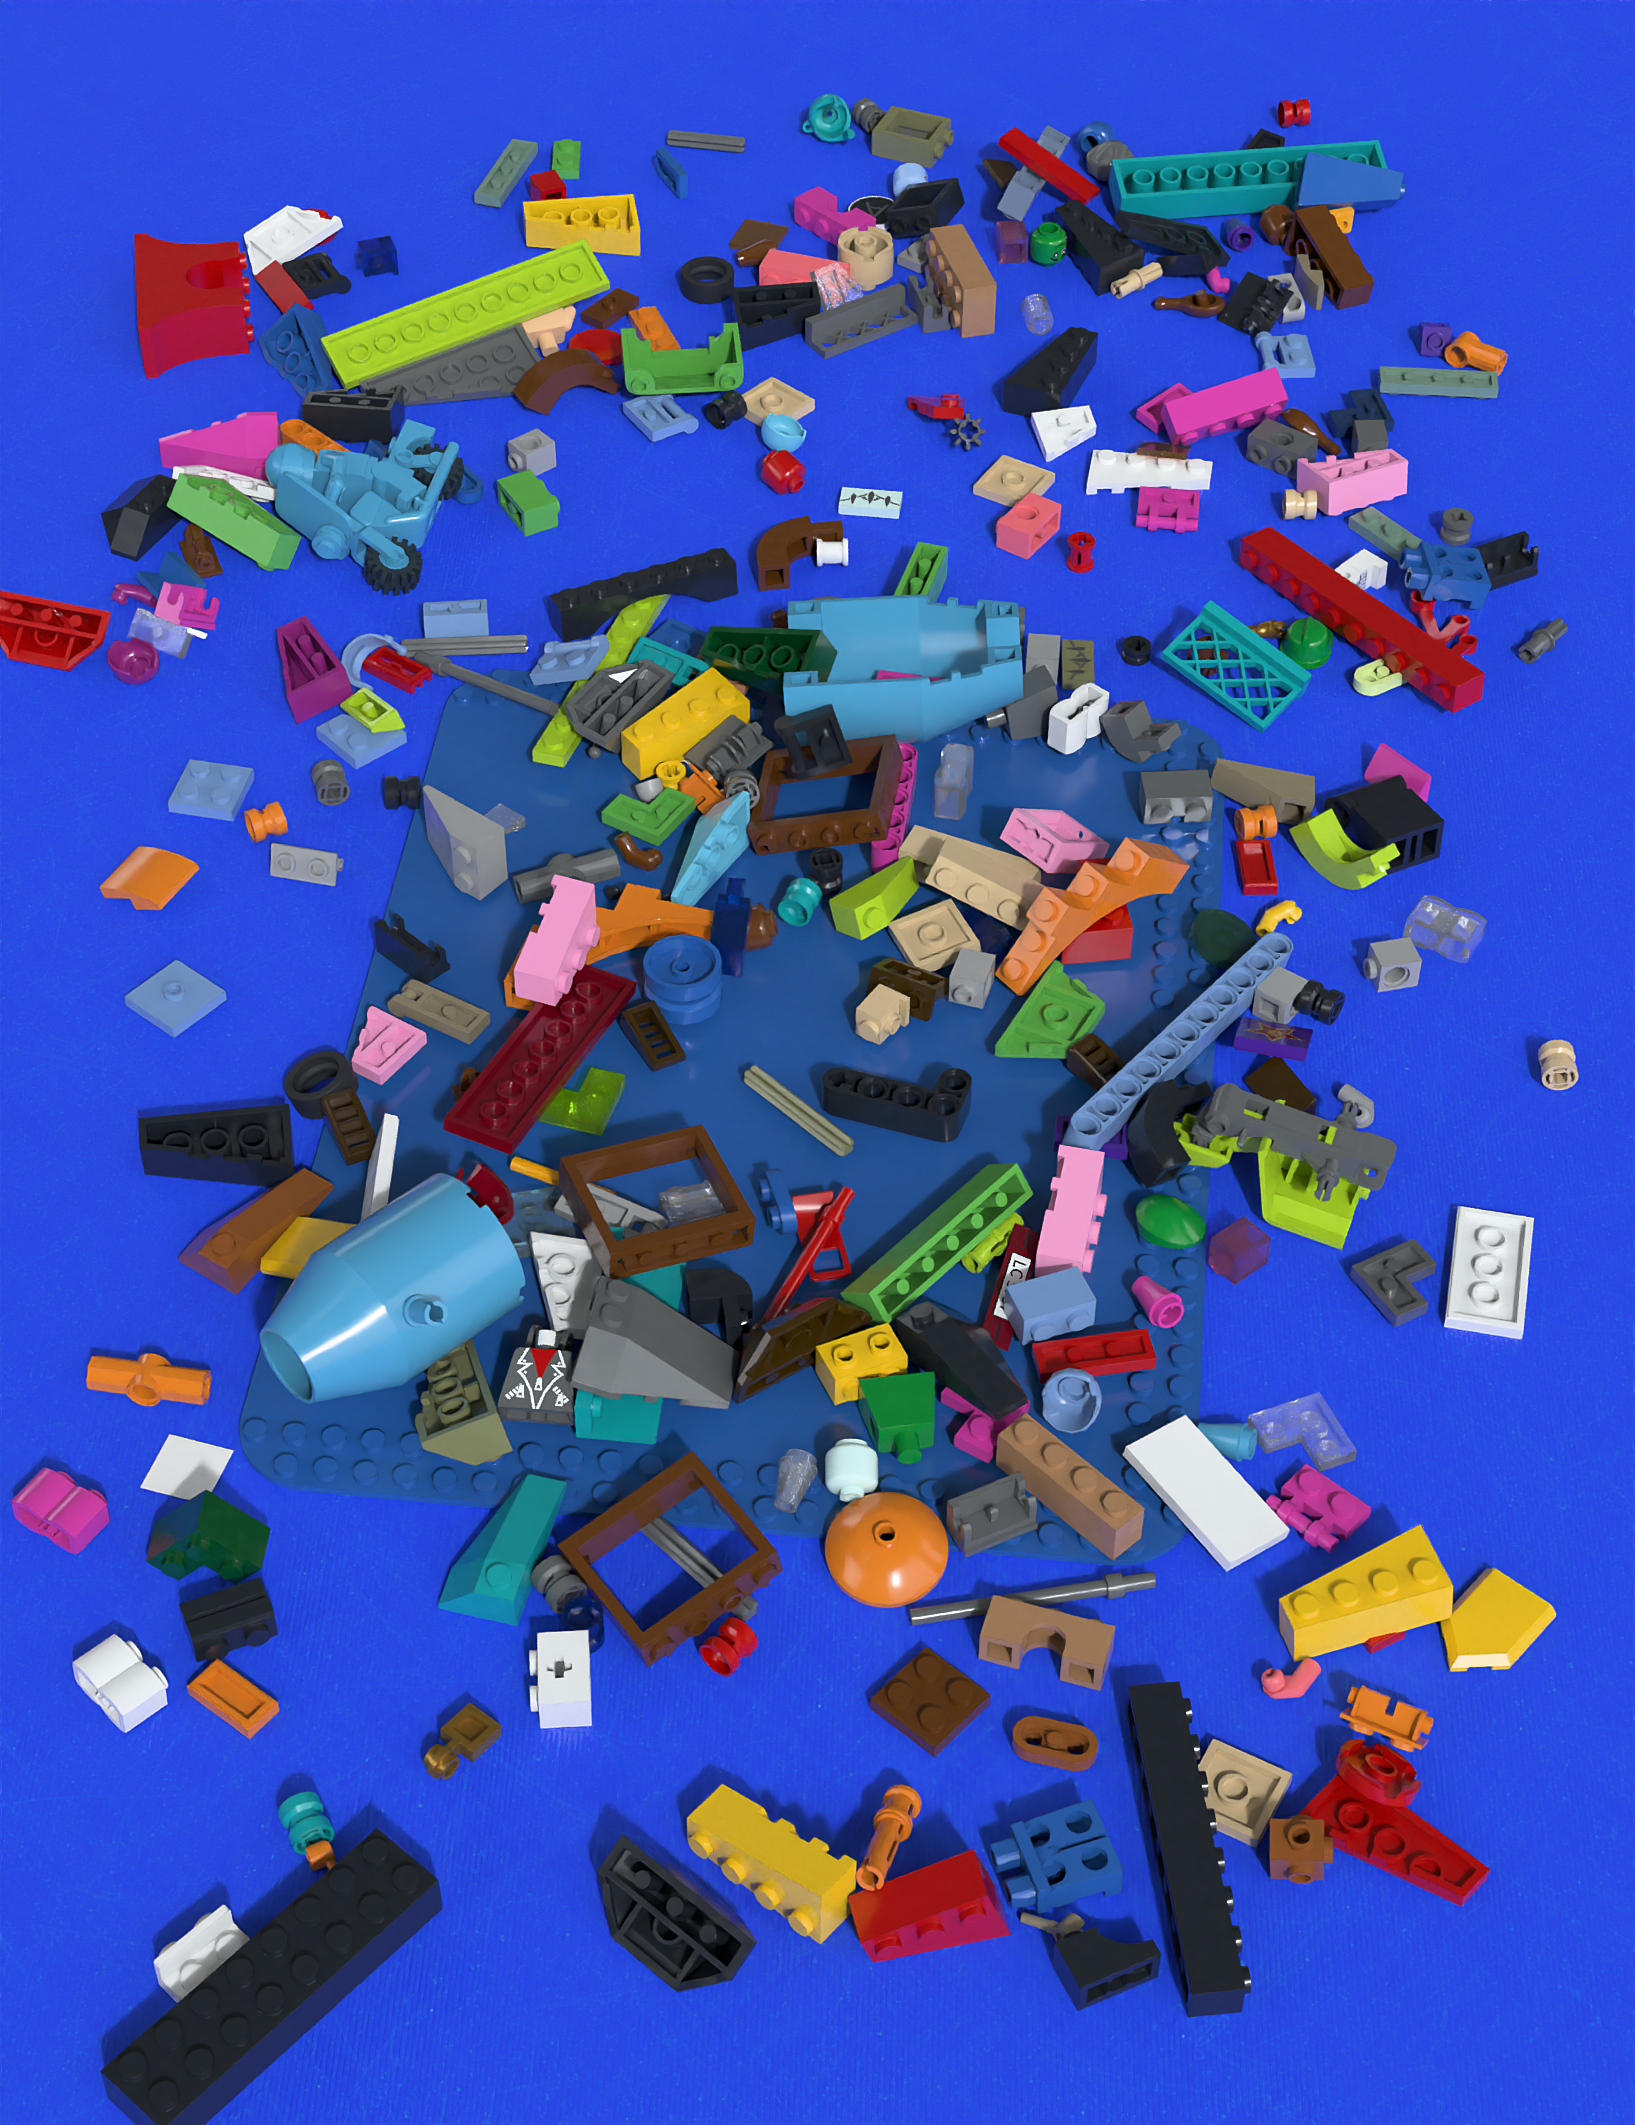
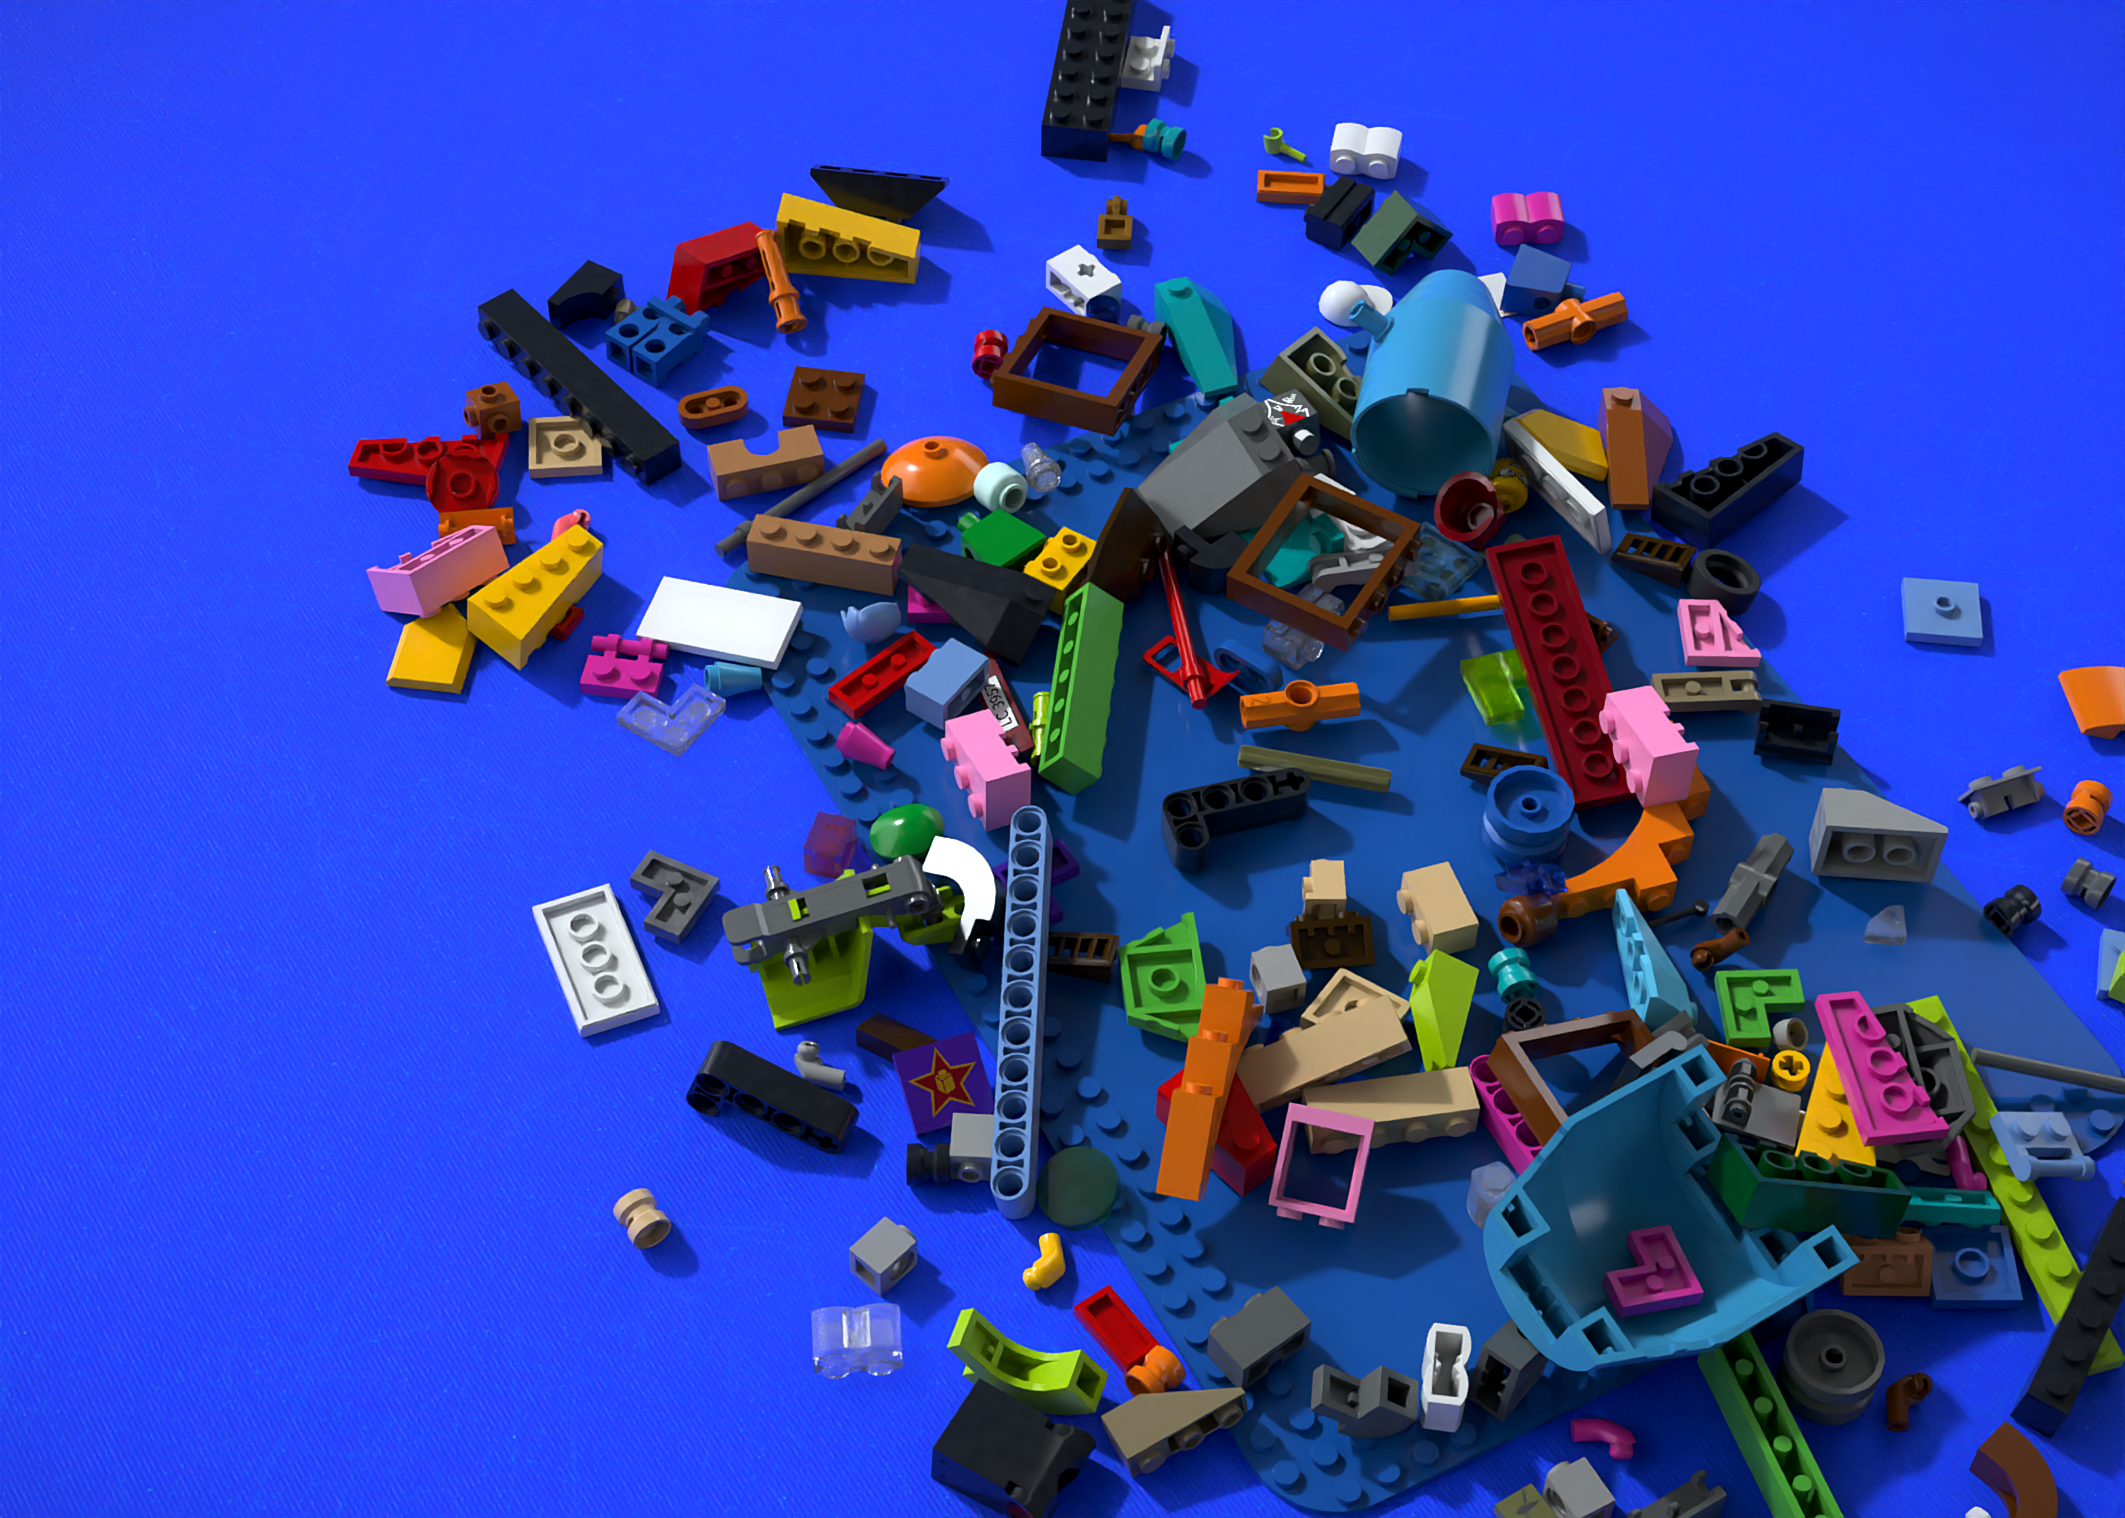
camera: 145 degrees right, 5 degrees up
(140, 1430) = (1538, 283): none -> blue torso
(186, 1753) = (1275, 145): none -> lime hand
(315, 1526) = (1342, 296): none -> white cap
(651, 695) = (1874, 1077): none -> dark pink wing
(768, 1149) = (1300, 705): none -> orange piece
(810, 965) = (1438, 909): none -> tan brick
(1422, 1083) = (772, 1096): none -> black beam
(1458, 1669) = (440, 574): none -> bright pink wedge

